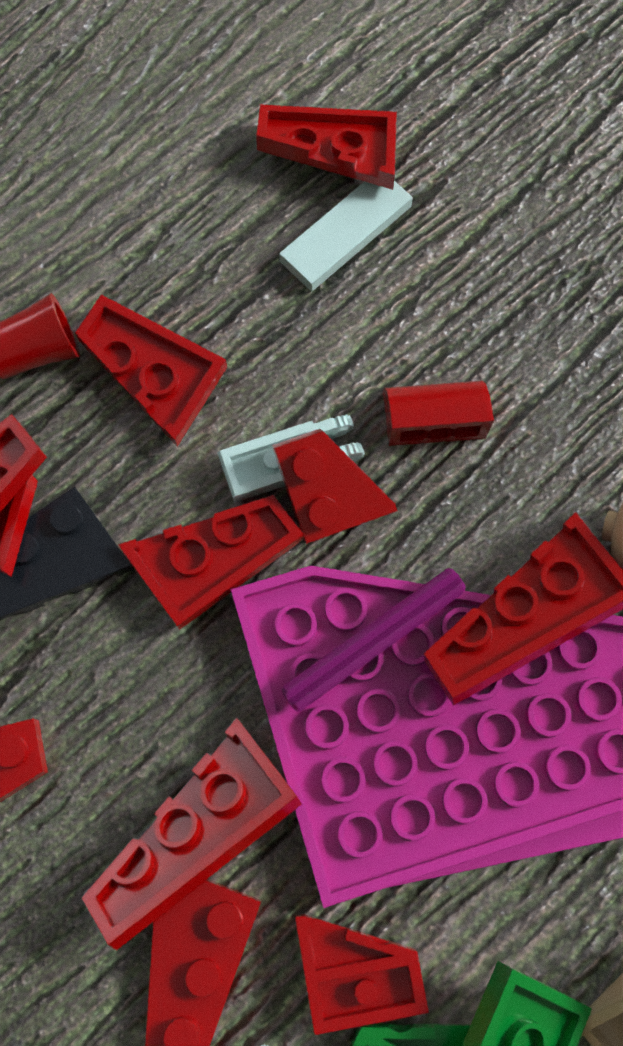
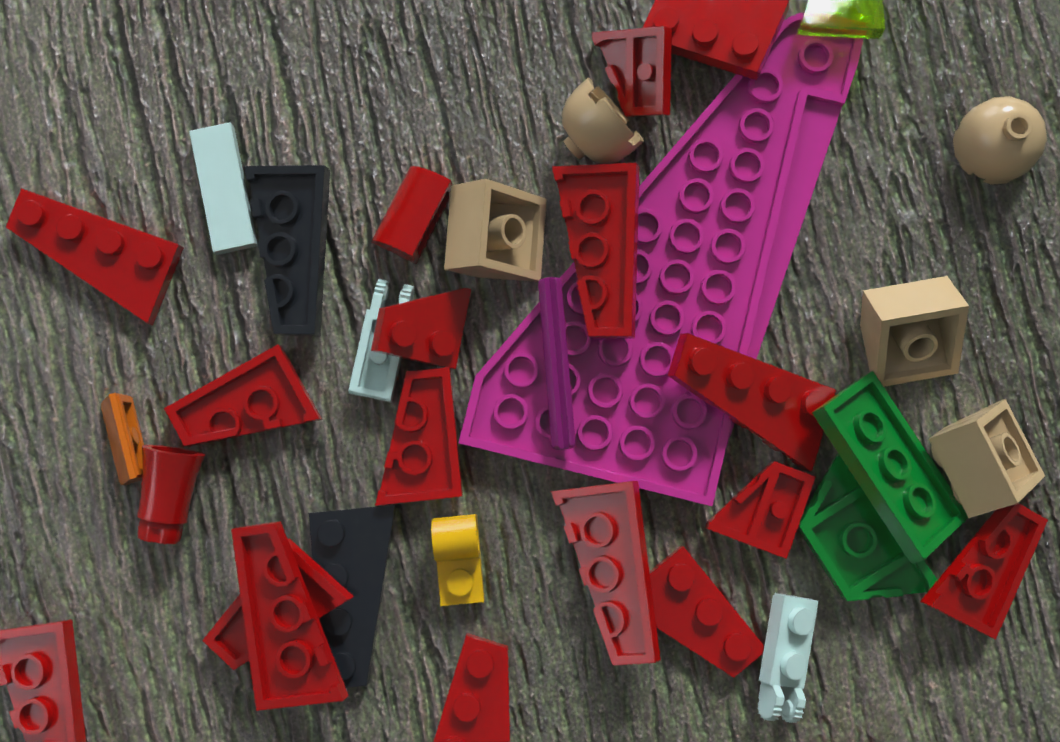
camera: 60 degrees left, 10 degrees up
(59, 277) = (124, 436): none -> orange slope
(119, 656) = (458, 559): none -> yellow plate
(218, 170) = (107, 255): none -> red wing
(332, 139) = (141, 152): red wing -> none
(346, 311) = (292, 232): none -> black wing
(471, 499) = (495, 231): none -> tan slope
(475, 883) = (754, 396): none -> red wing

